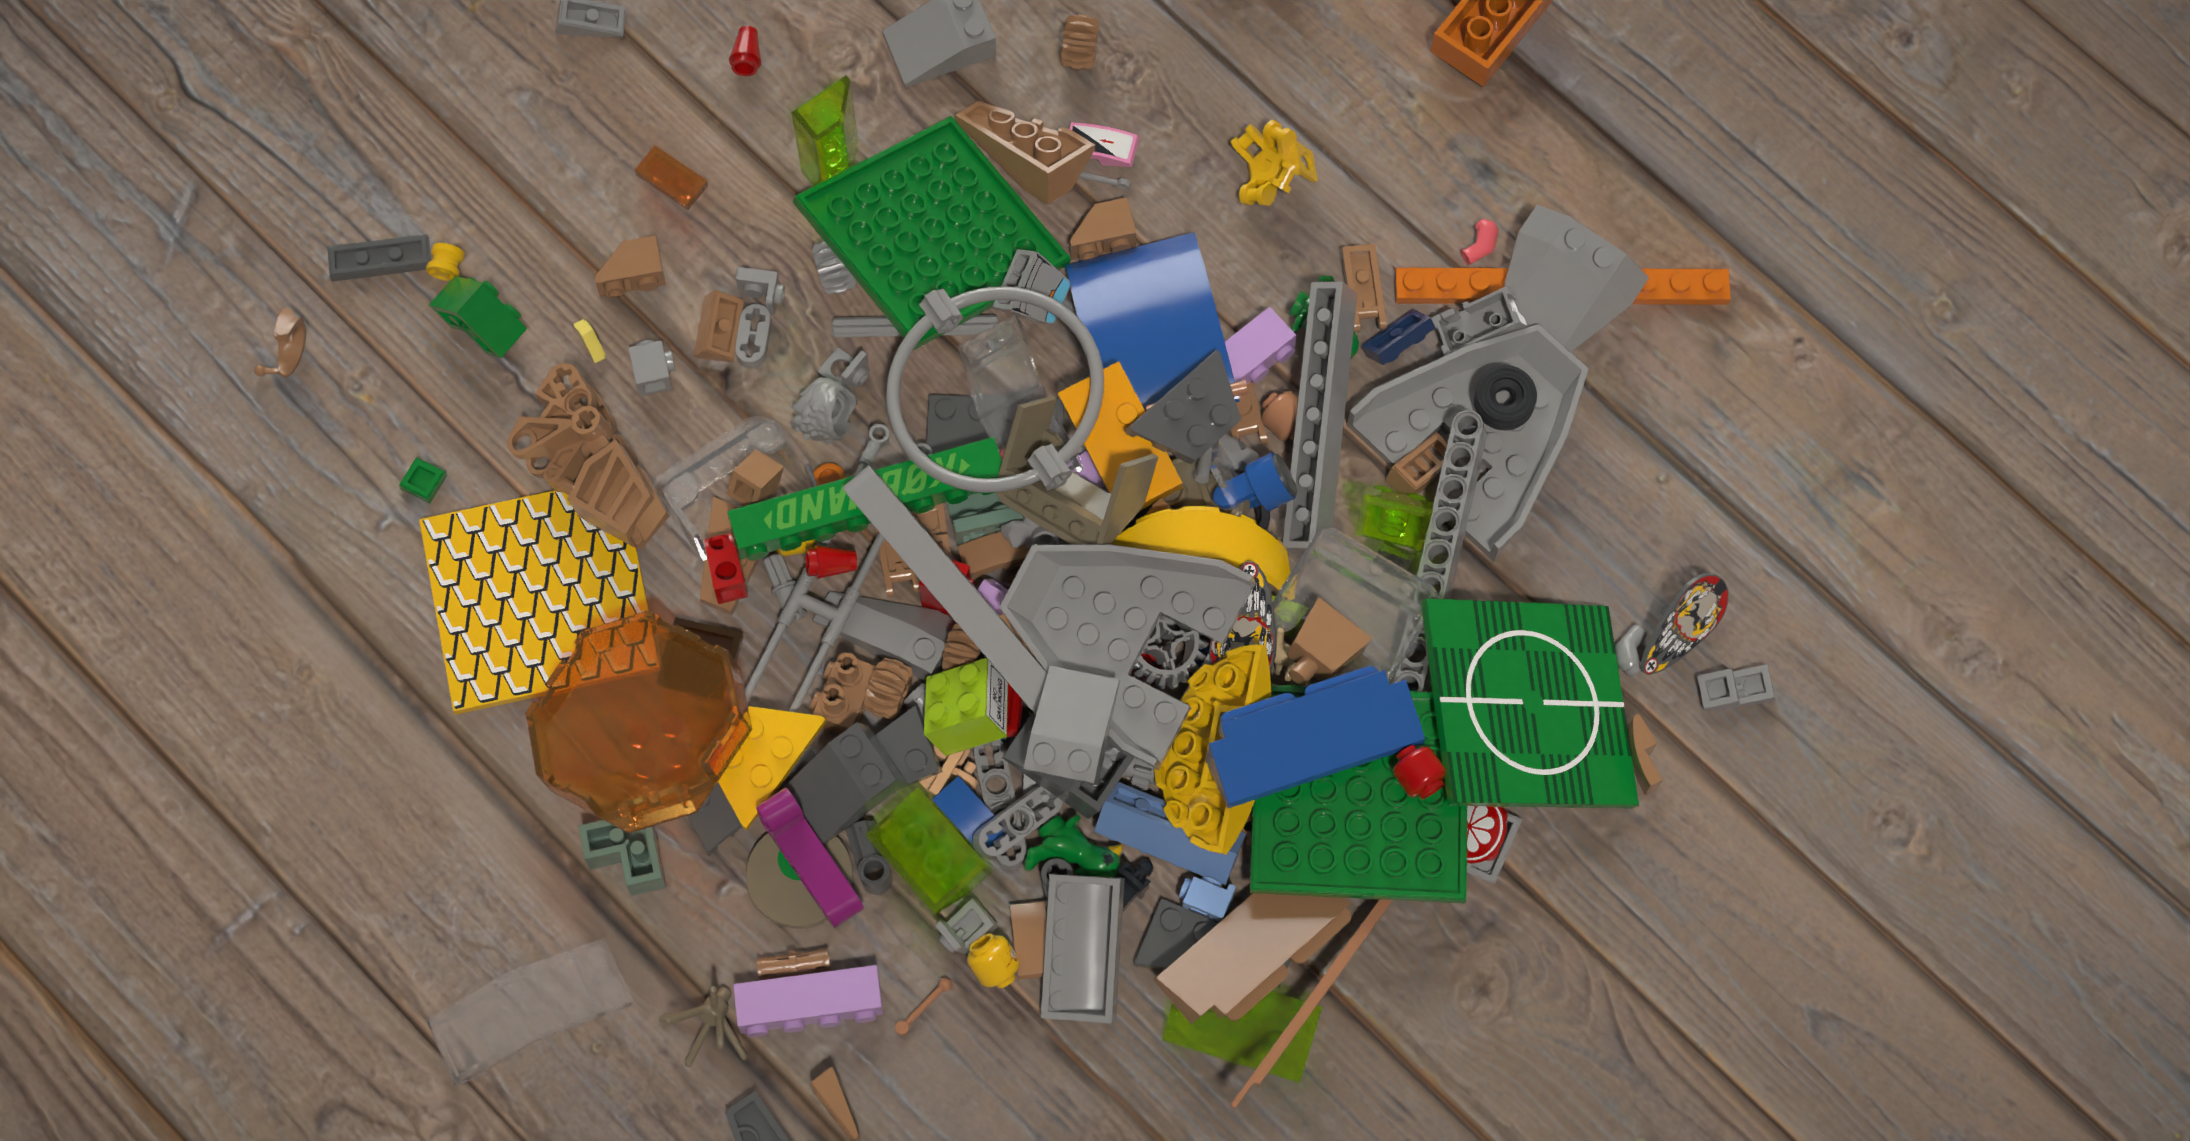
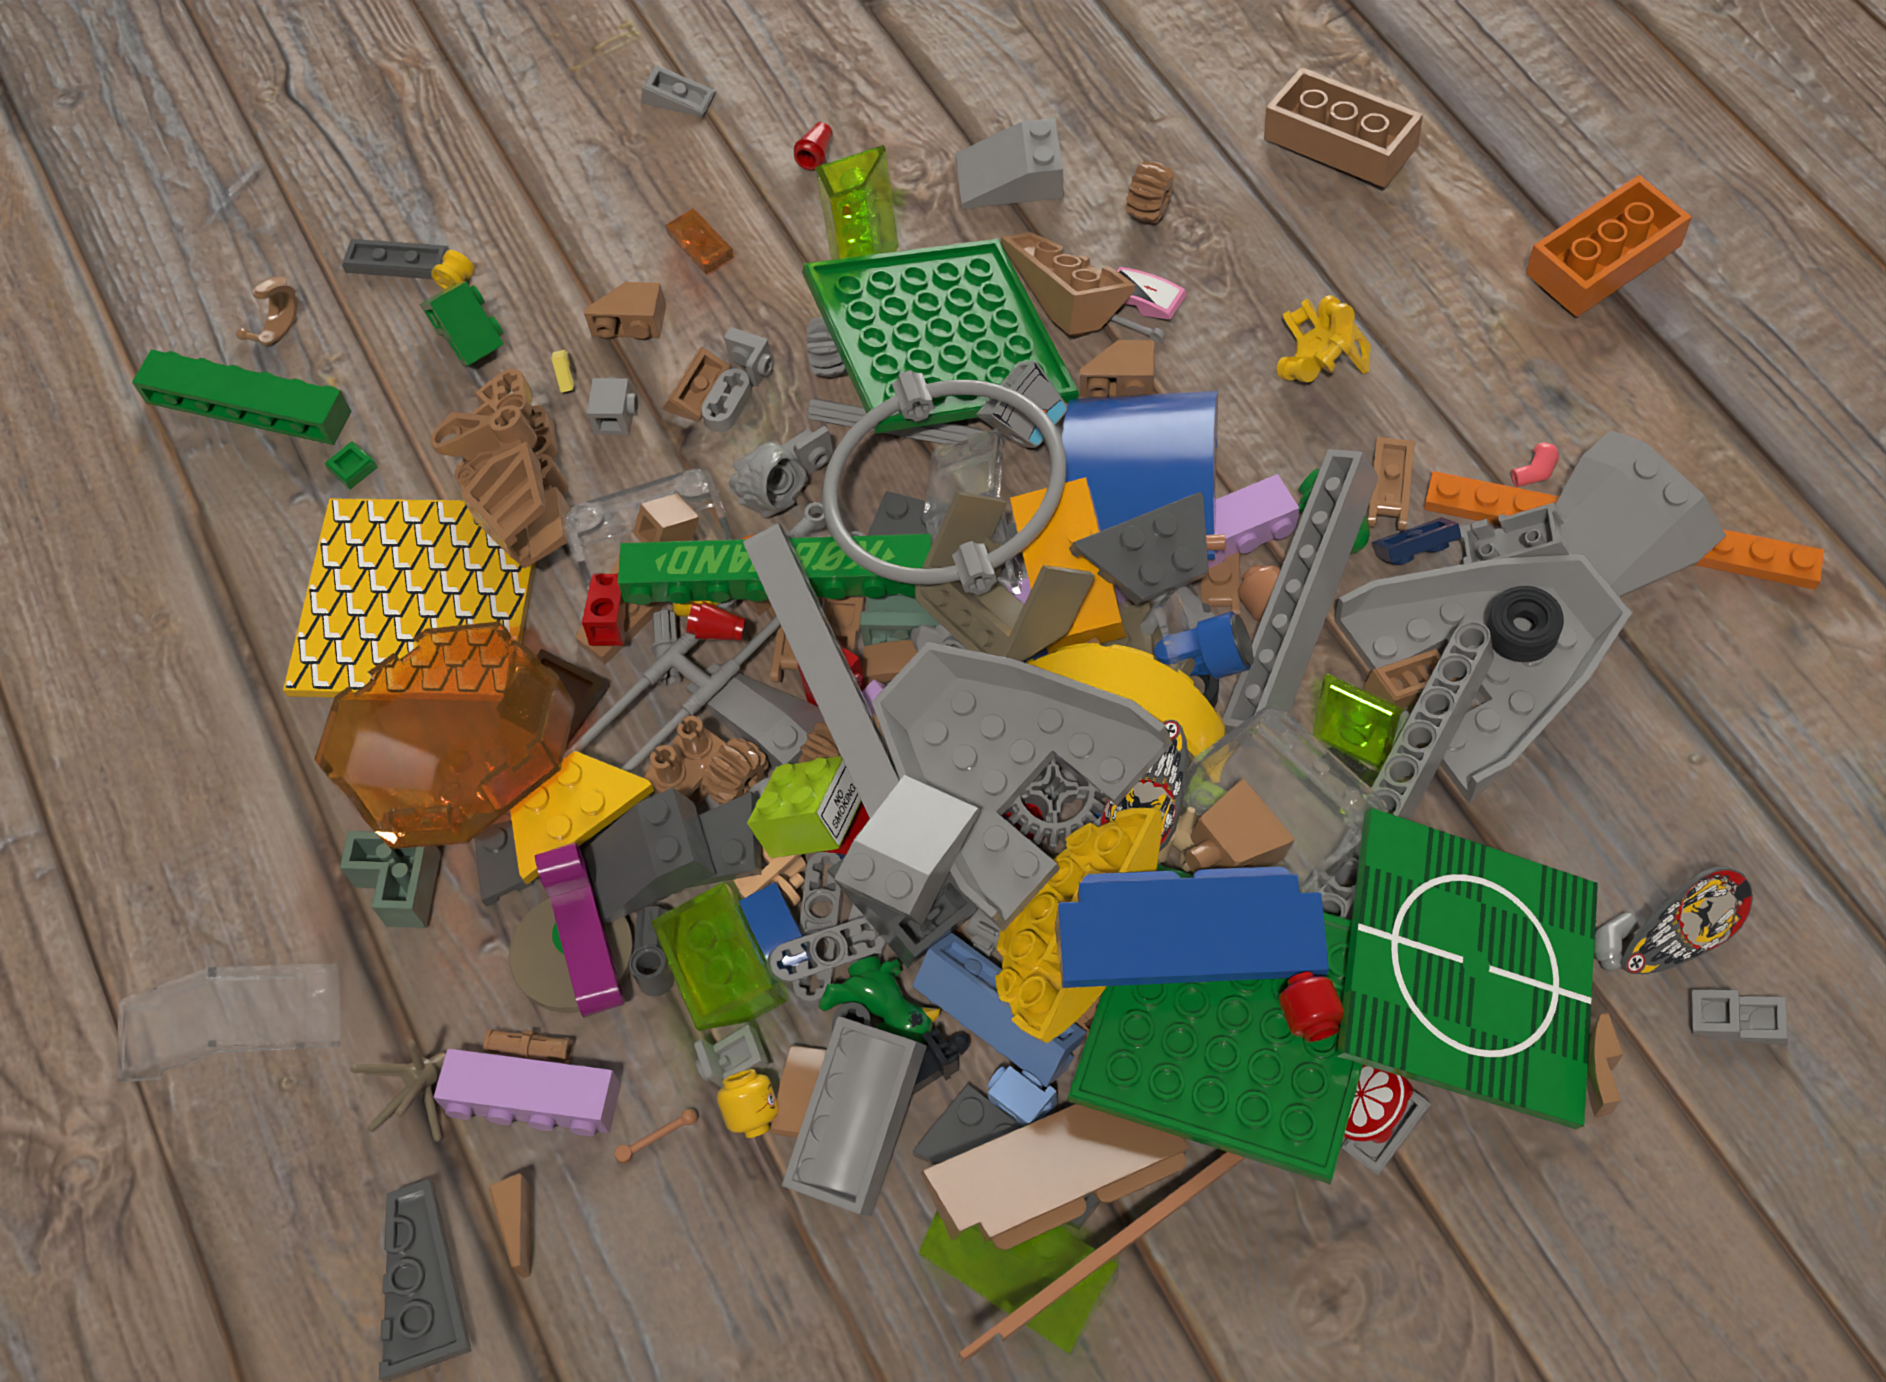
camera: 25 degrees right, 10 degrees down
(291, 436) = (242, 396): none -> green brick

